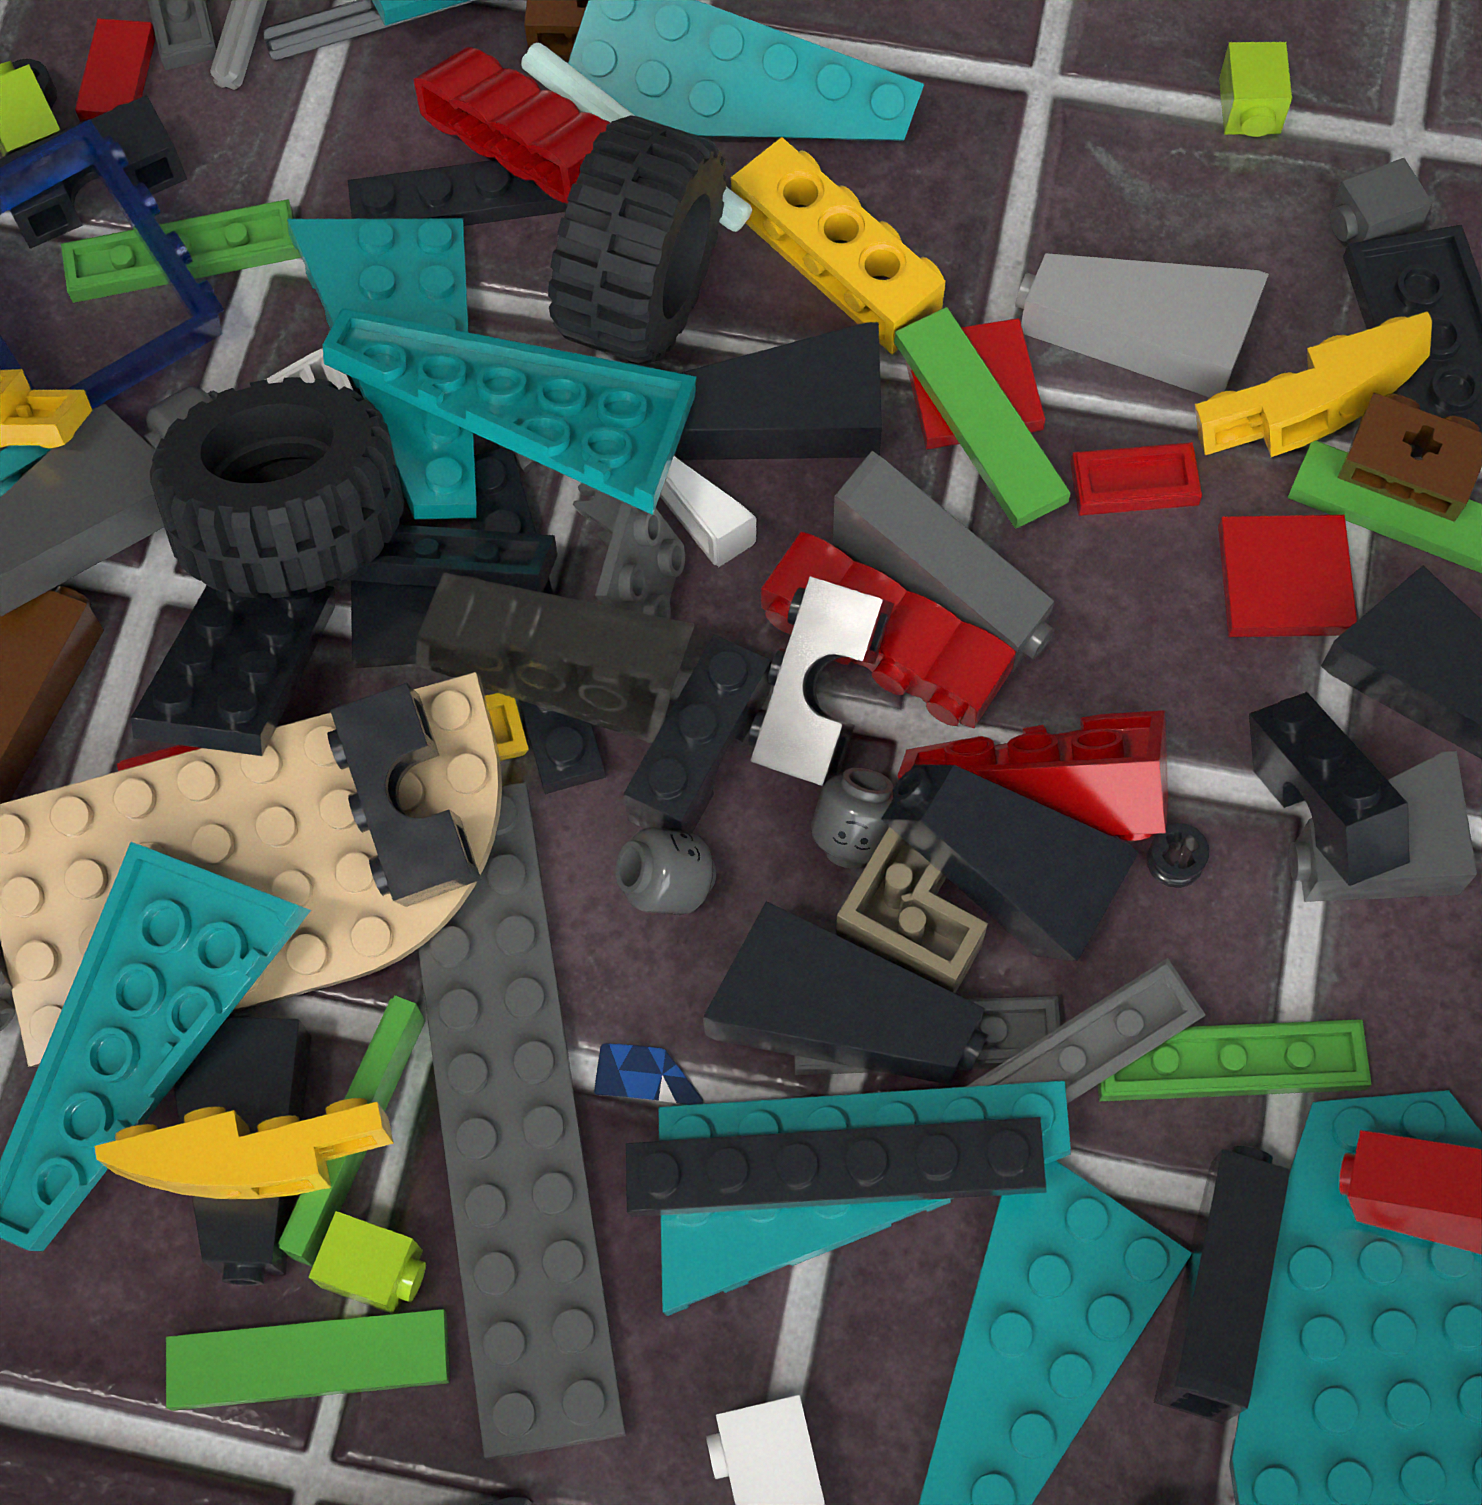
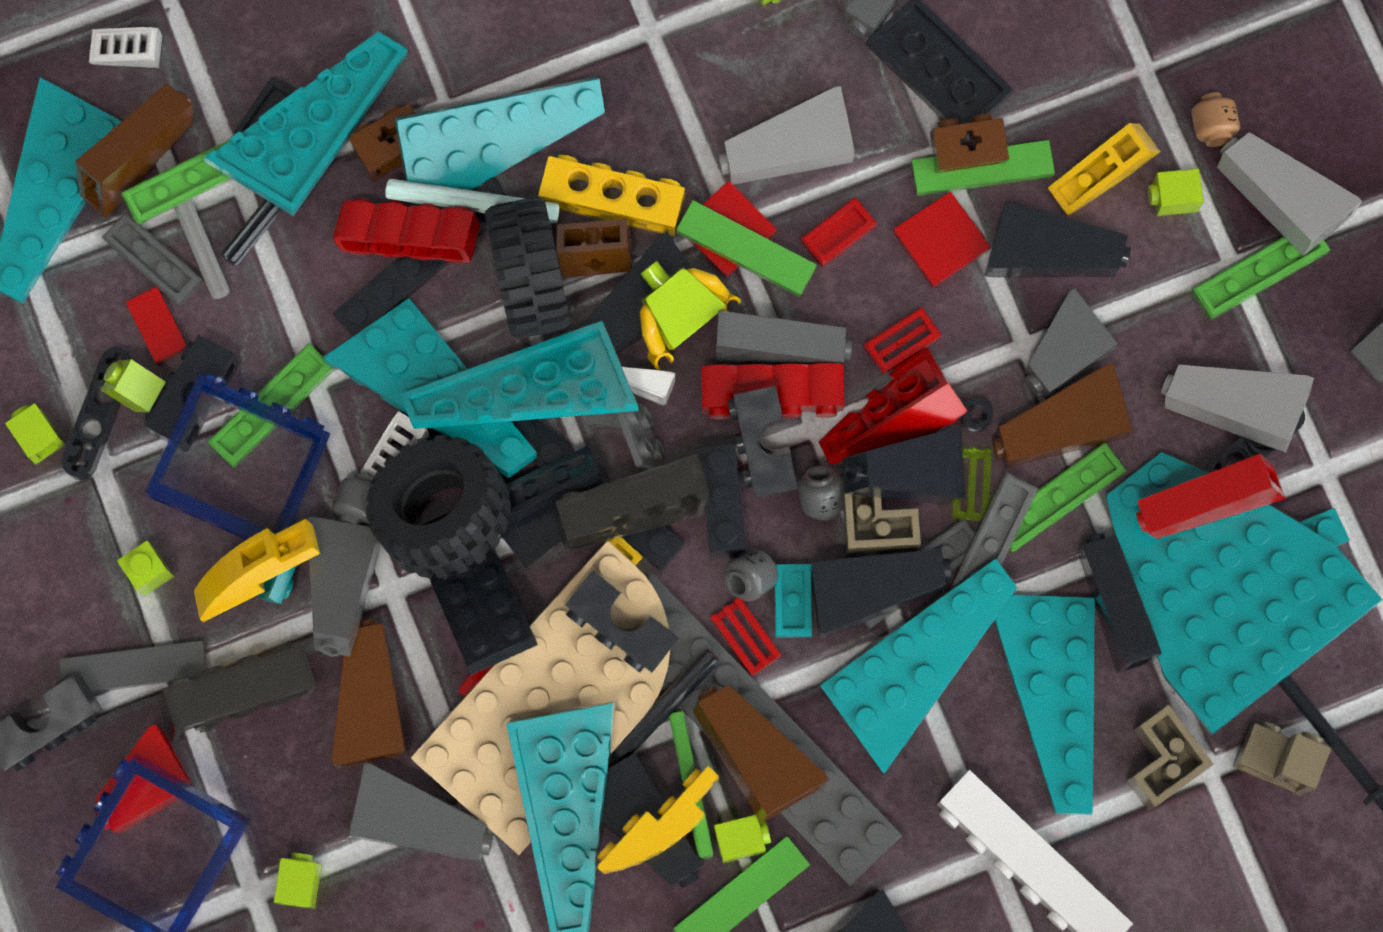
camera: 35 degrees left, 10 degrees up
(405, 979) = (667, 703): none -> black axle
(478, 1156) = (757, 755): none -> reddish brown slope
(597, 910) = (728, 612): none -> red tile
(642, 1075) = (800, 675): dark blue sticker -> none
(701, 953) = (793, 601): none -> teal plate
(760, 289) = (594, 248): none -> reddish brown brick
(821, 422) = (678, 307): none -> lime torso
(835, 1167) = (920, 662): black plate -> none
(1132, 683) = (877, 357): none -> red tile
(1133, 912) = (975, 454): none -> clear neon green tile
(1318, 948) = (1069, 421): none -> reddish brown slope
(1321, 400) = (911, 124): yellow slope -> none
(1354, 808) = (1013, 335): black arch -> none

